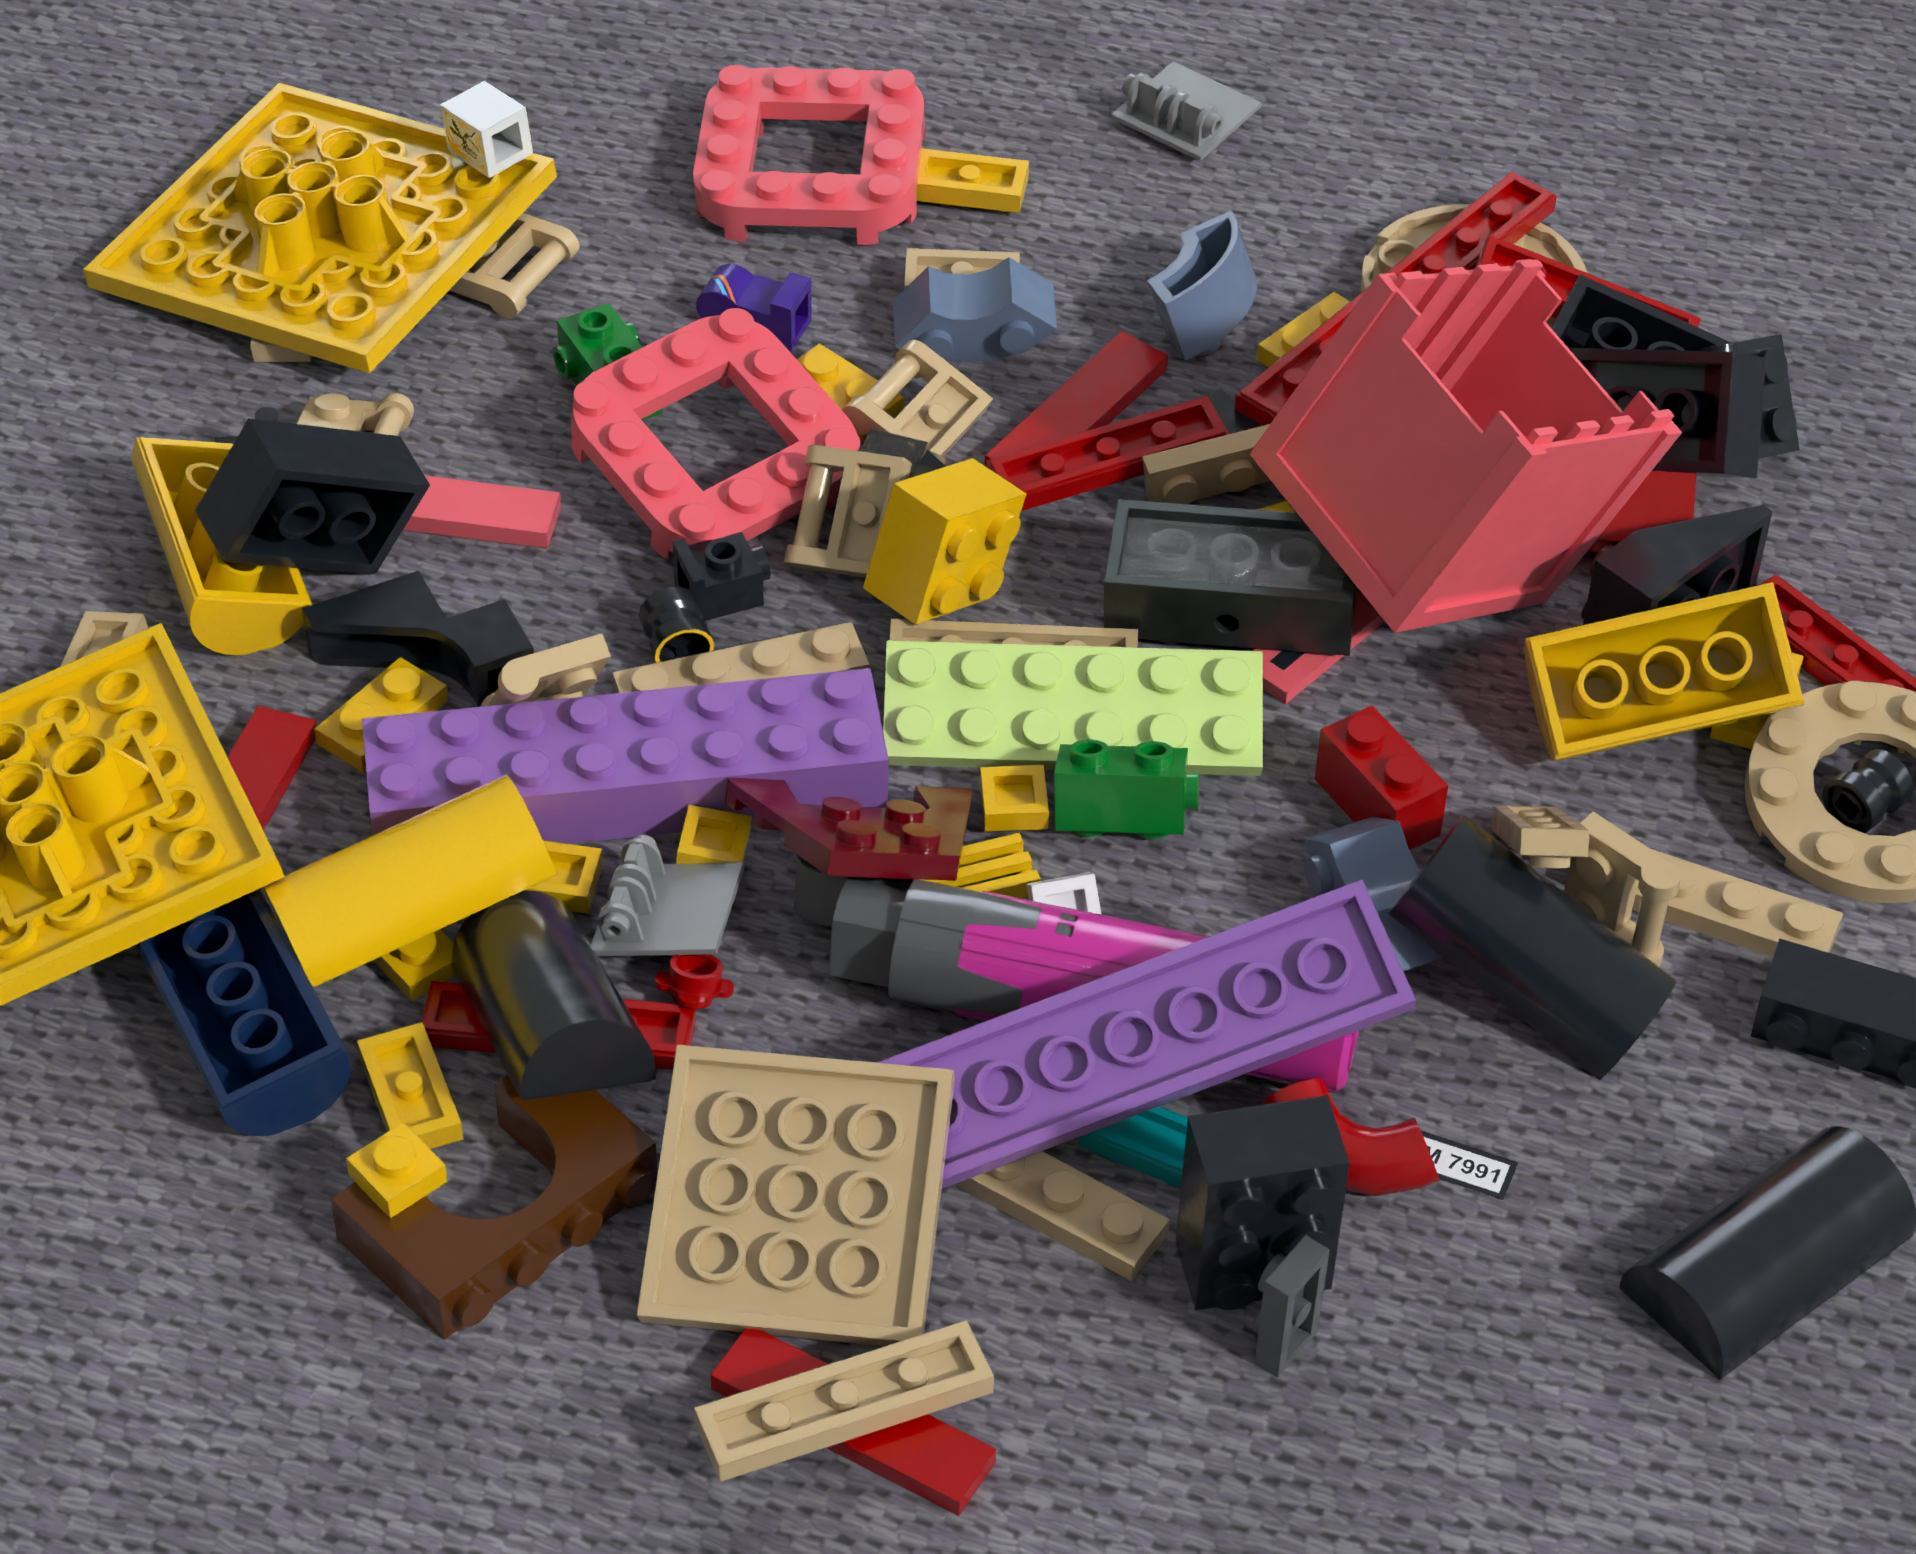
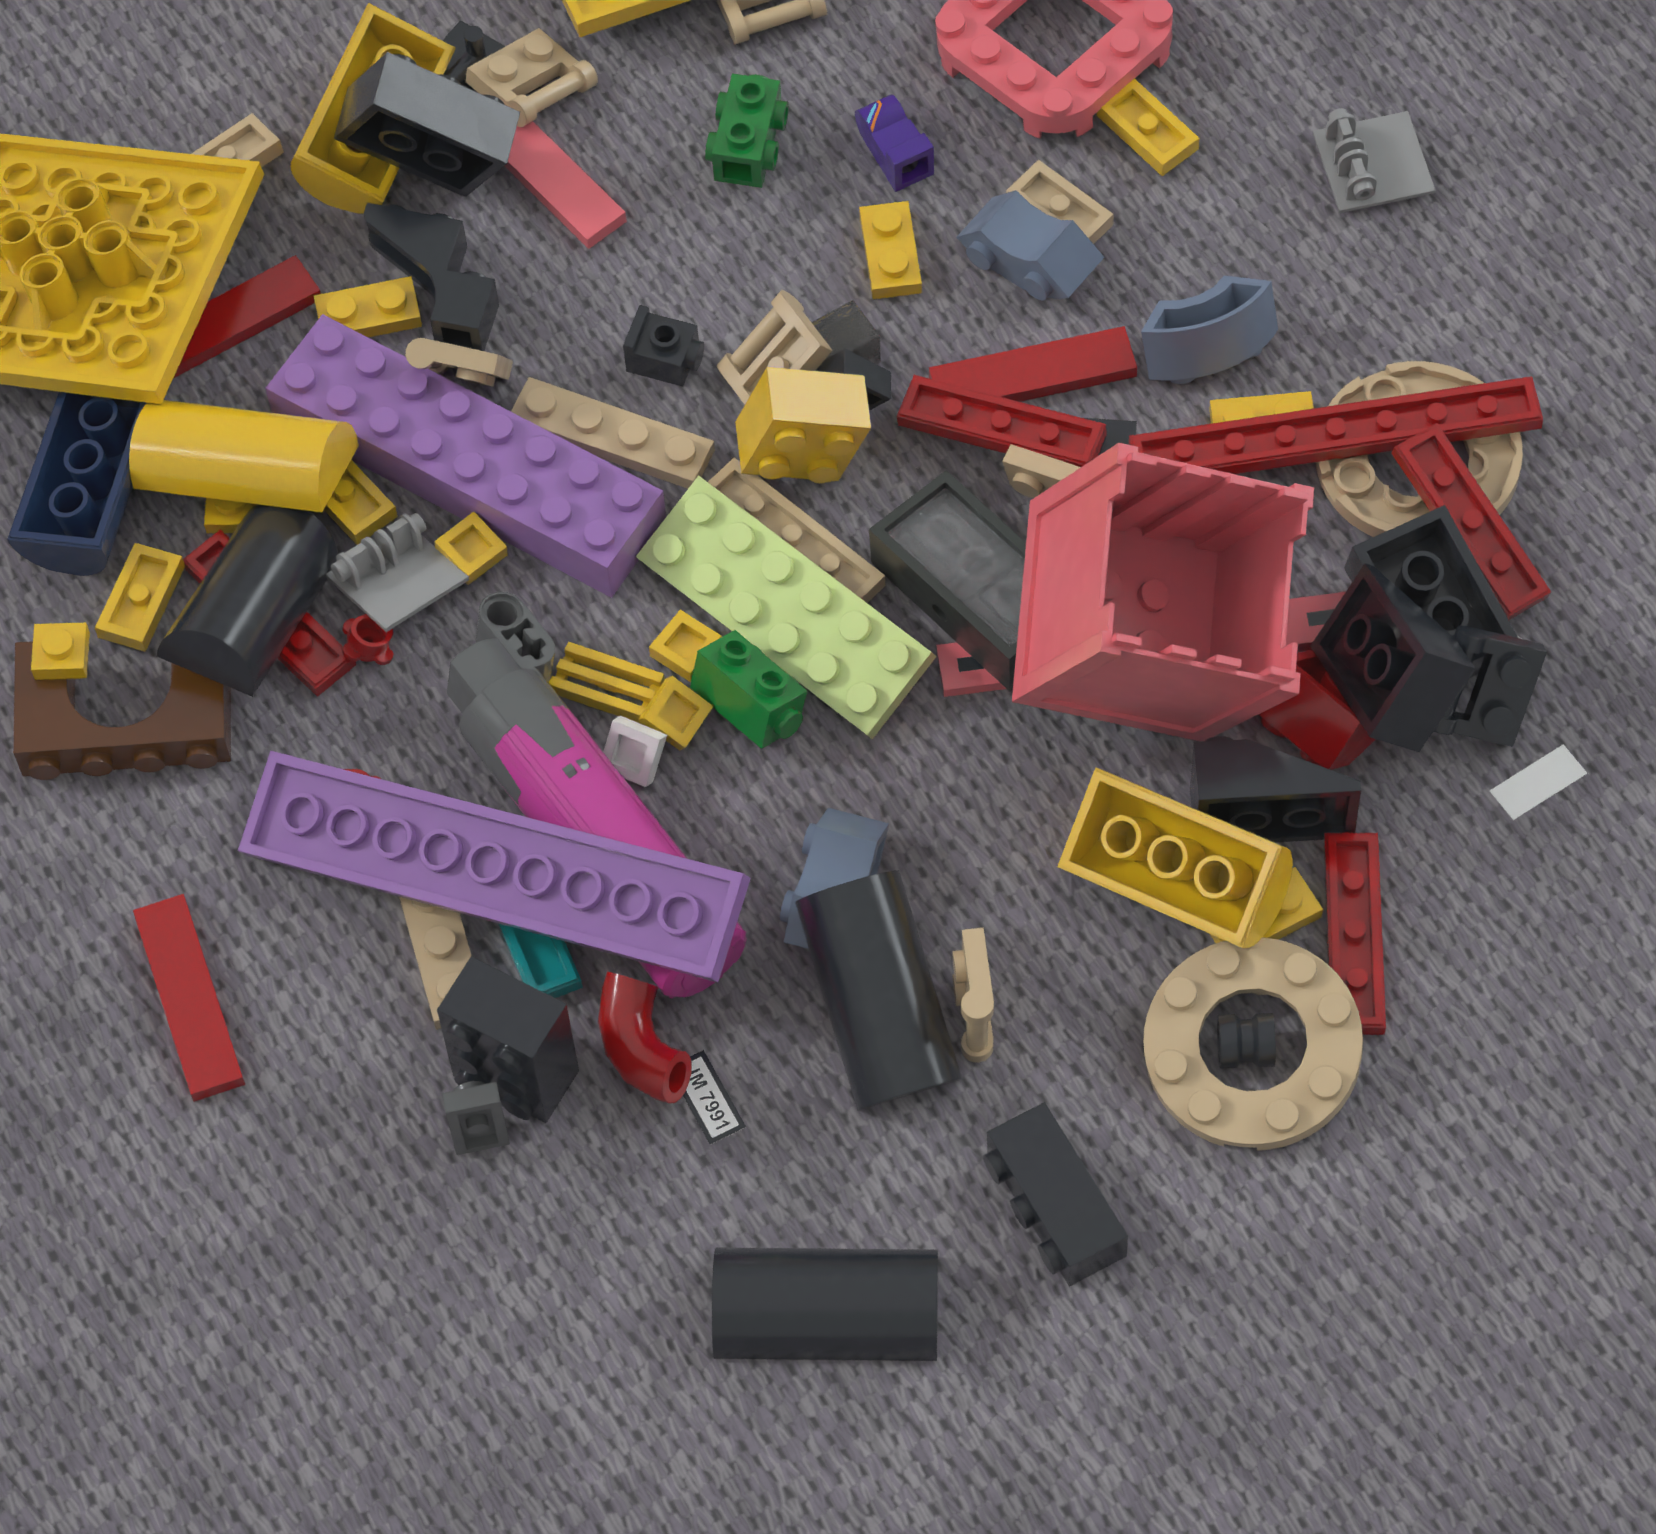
camera: 45 degrees right, 15 degrees up
(675, 624) = (596, 368): black wheel -> none
(712, 349) = (746, 166): coral plate -> none
(797, 1196) = (268, 833): tan plate -> none
(843, 1400) = (176, 983): tan plate -> none
(851, 840) = (539, 625): dark red wing -> none
(938, 412) = (921, 314): tan plate -> none
(1068, 850) = (676, 712): none -> yellow plate
(1380, 775) = (922, 801): red brick -> none
(1541, 834) = (941, 915): tan plate -> none
(1745, 911) = (1059, 1040): tan plate -> none
(1843, 467) = (1538, 782): none -> white sticker

